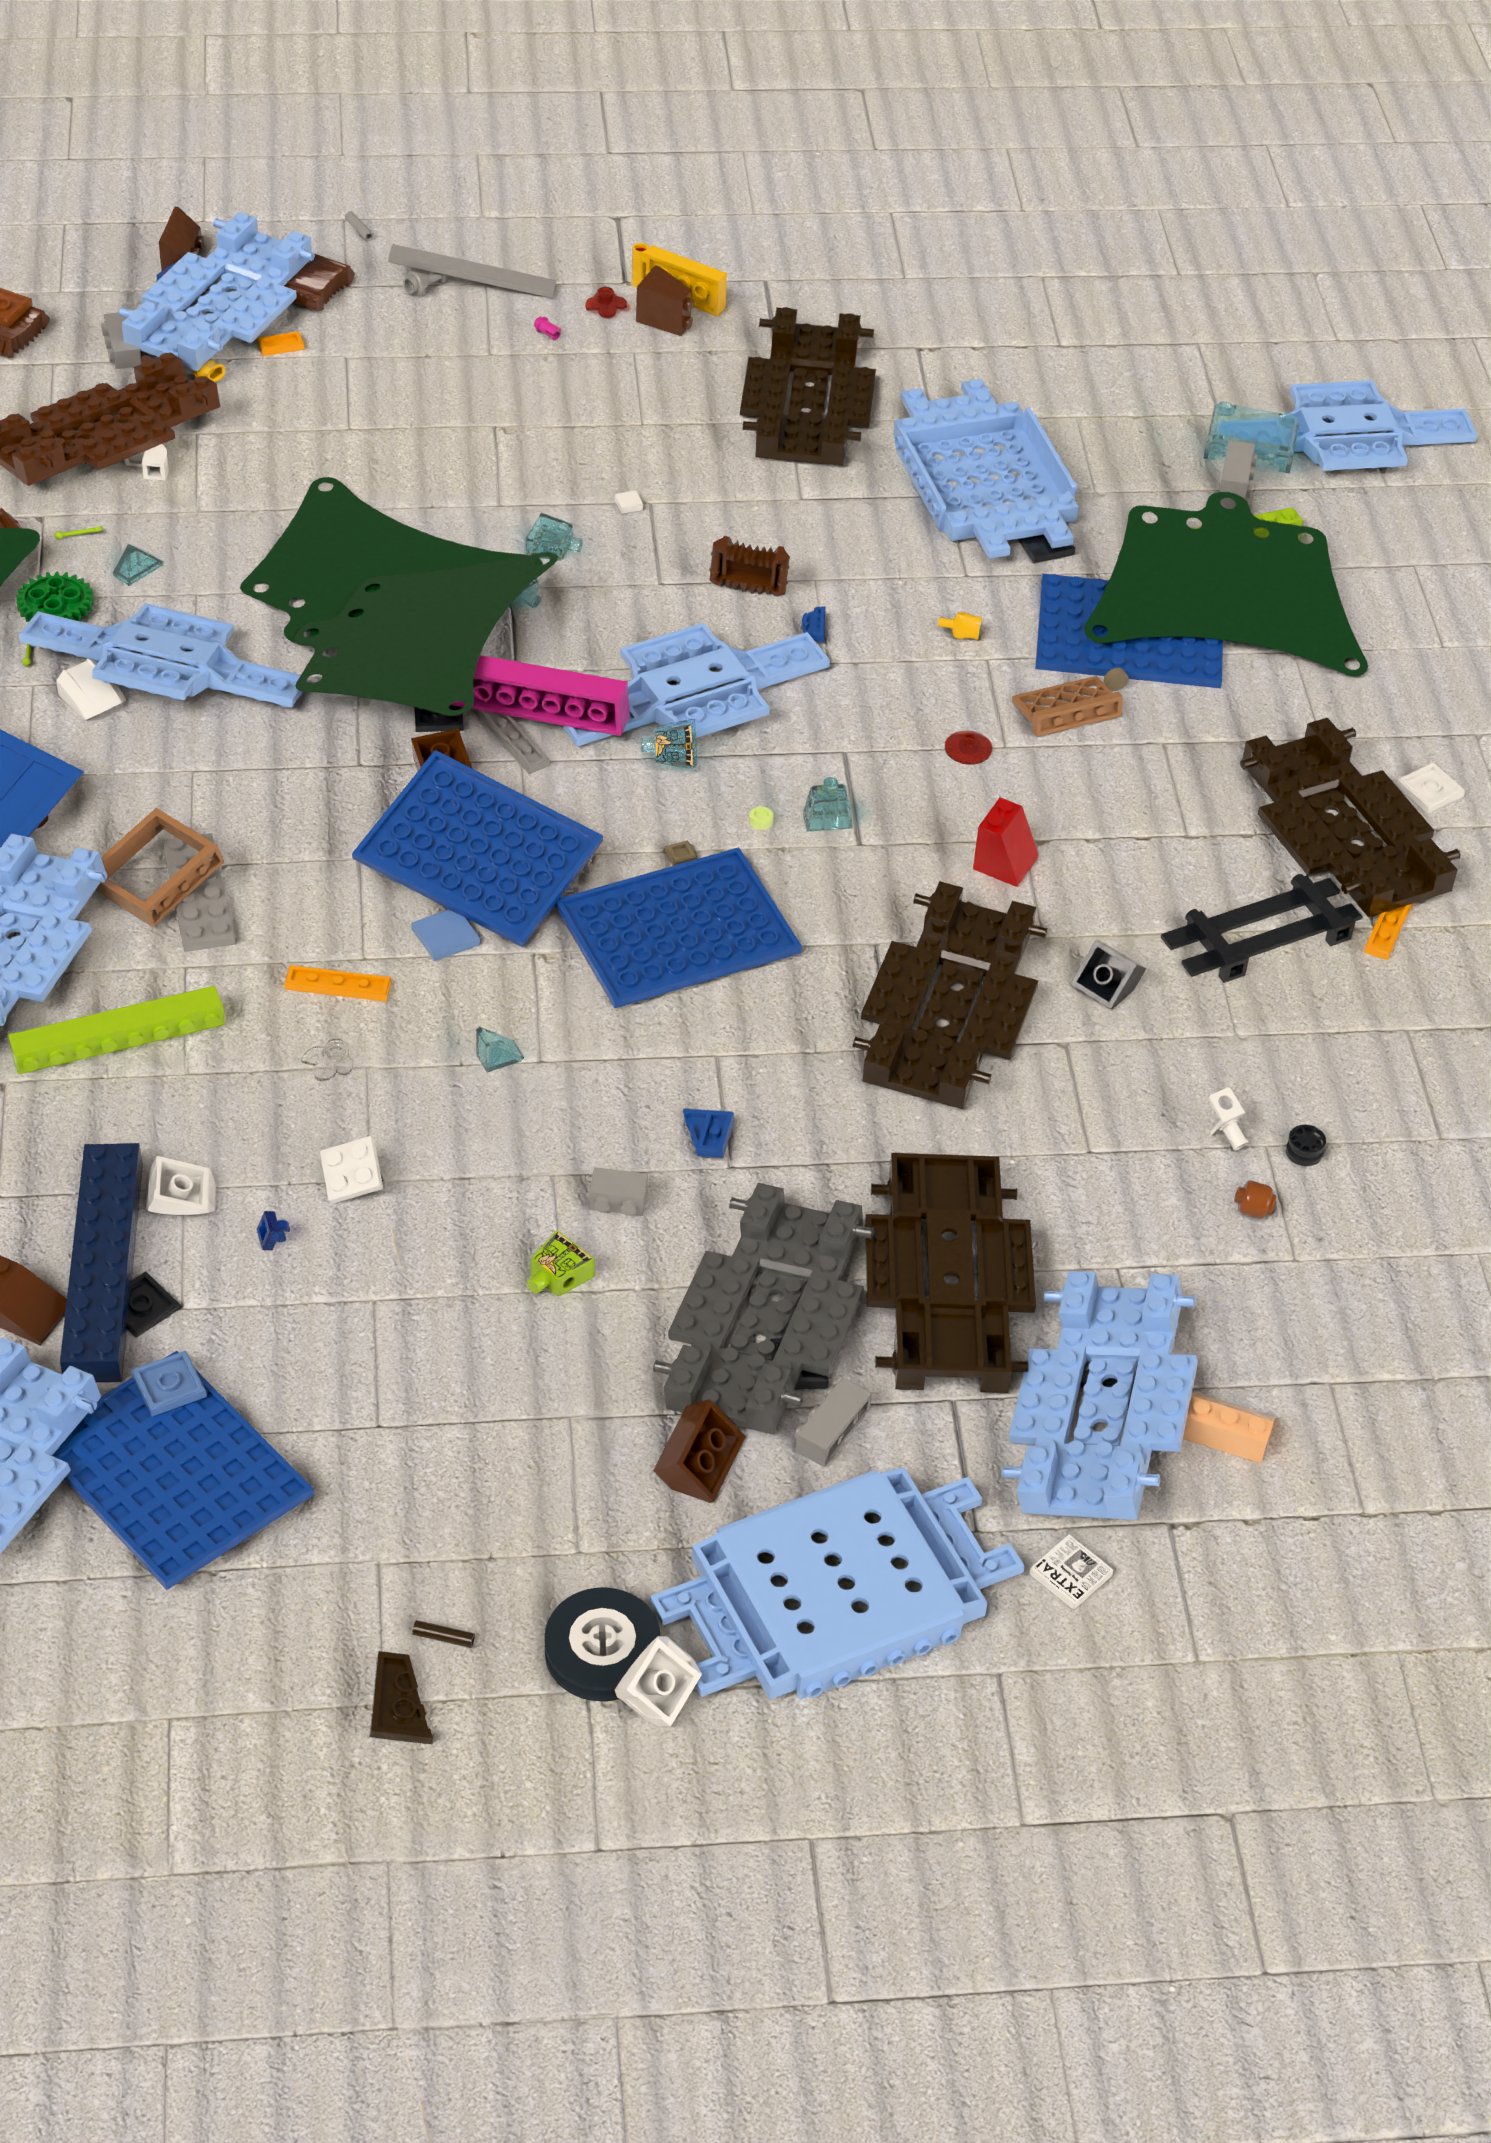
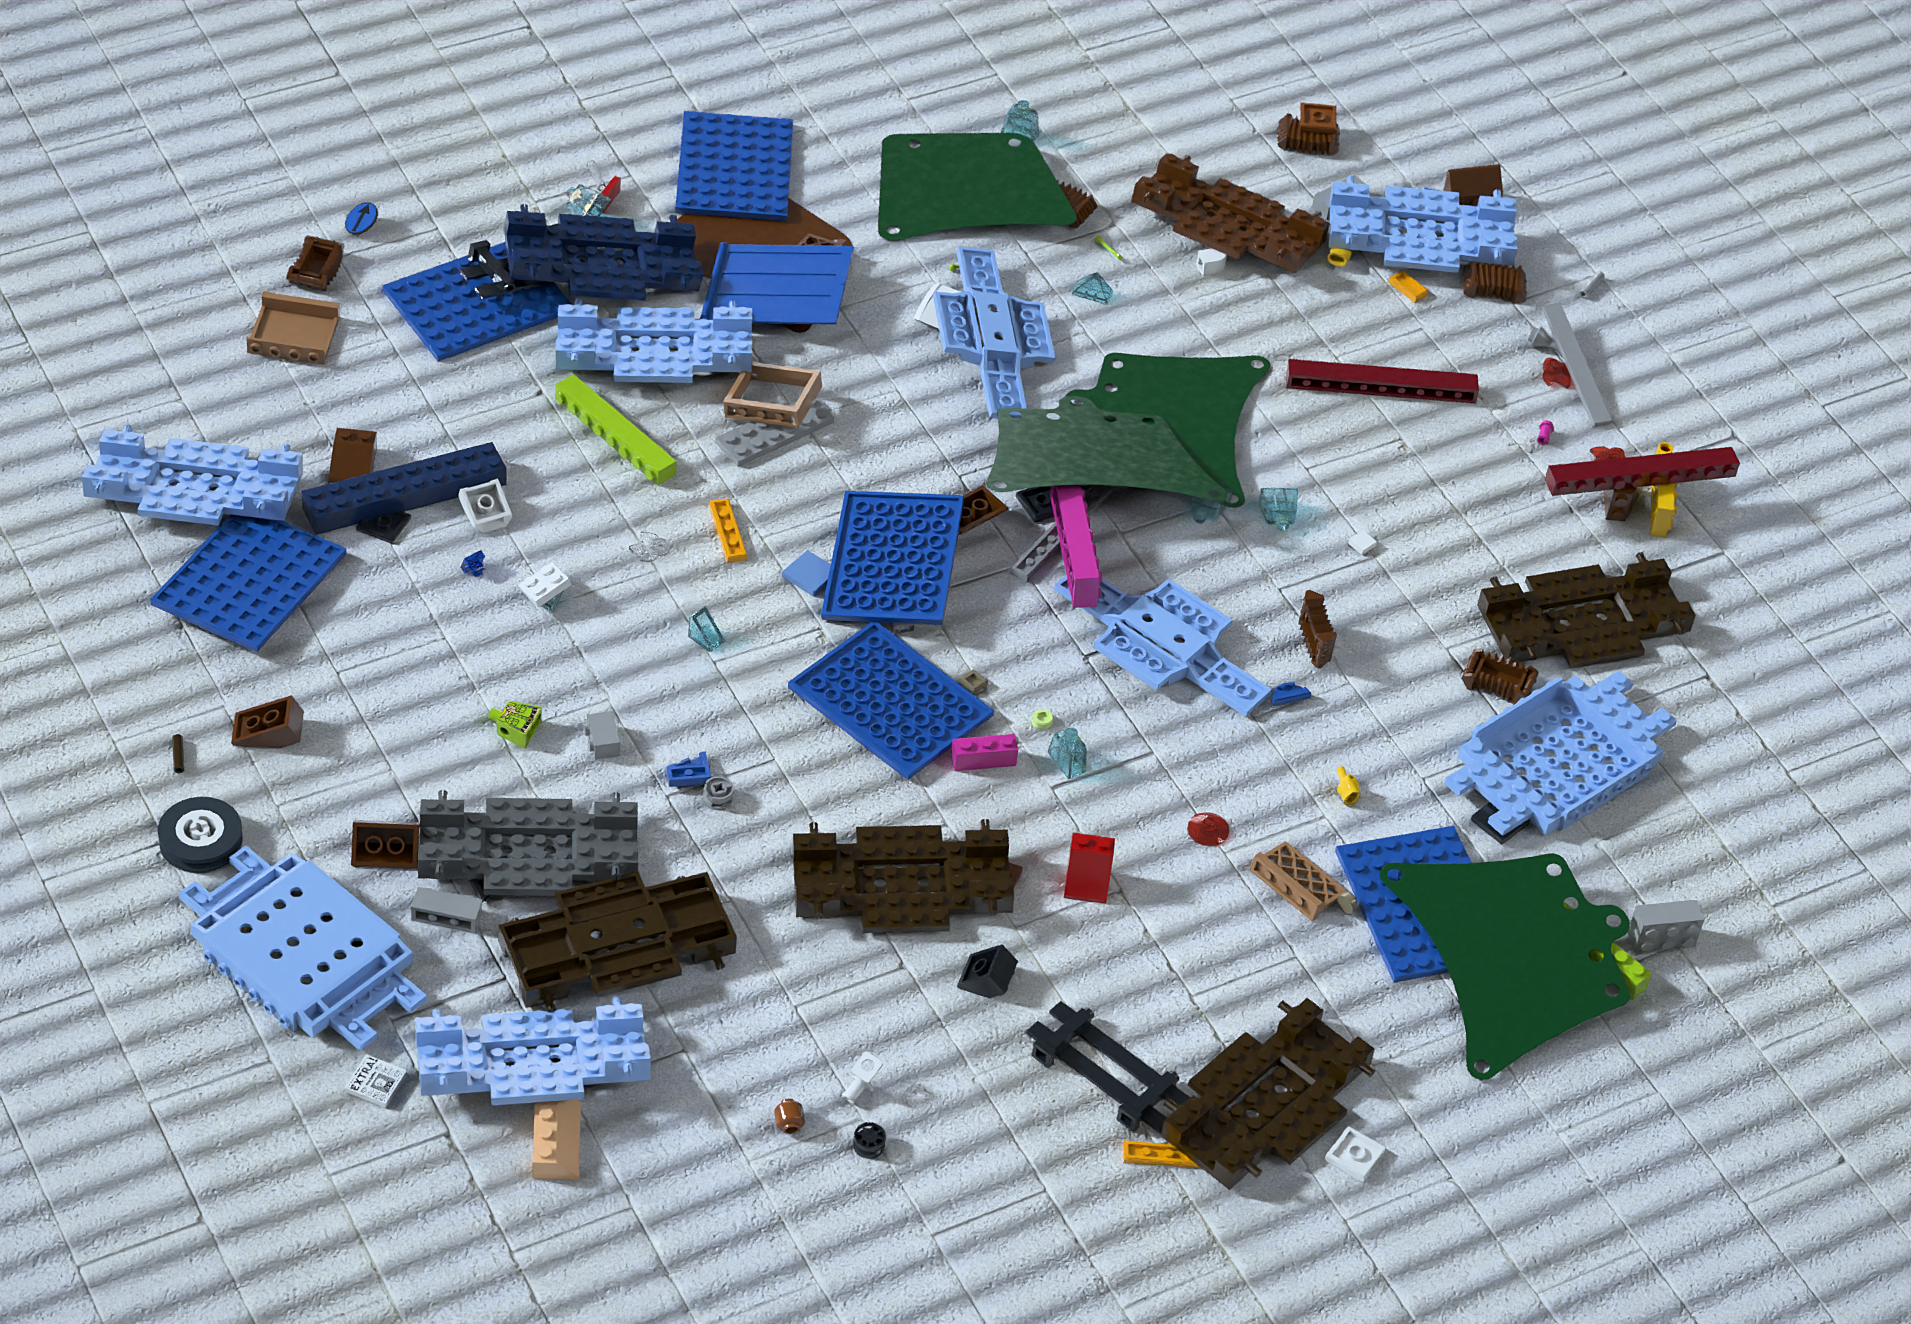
camera: 65 degrees right, 0 degrees up
(55, 596) = (1023, 258): green gear -> none
(168, 1383) = (313, 551): medium blue tile -> none
(396, 1702) = (114, 744): dark brown wing -> none
(410, 408) = (1382, 381): none -> dark red brick
(445, 1519) = (269, 724): none -> reddish brown slope
(468, 291) = (1556, 372): none -> clear red plate
(659, 1682) = (172, 864): white slope -> none
(673, 270) = (1642, 471): none -> dark red brick
(673, 744) = (1079, 641): clear light blue torso -> none
(753, 1115) = (718, 791): none -> light grey wheel
(796, 874) = (984, 752): none -> dark pink brick
(864, 472) = (1499, 676): none -> reddish brown piece
(1270, 432) = (1734, 925): clear light blue windscreen -> none
(1351, 408) = (1830, 980): light blue piece -> none

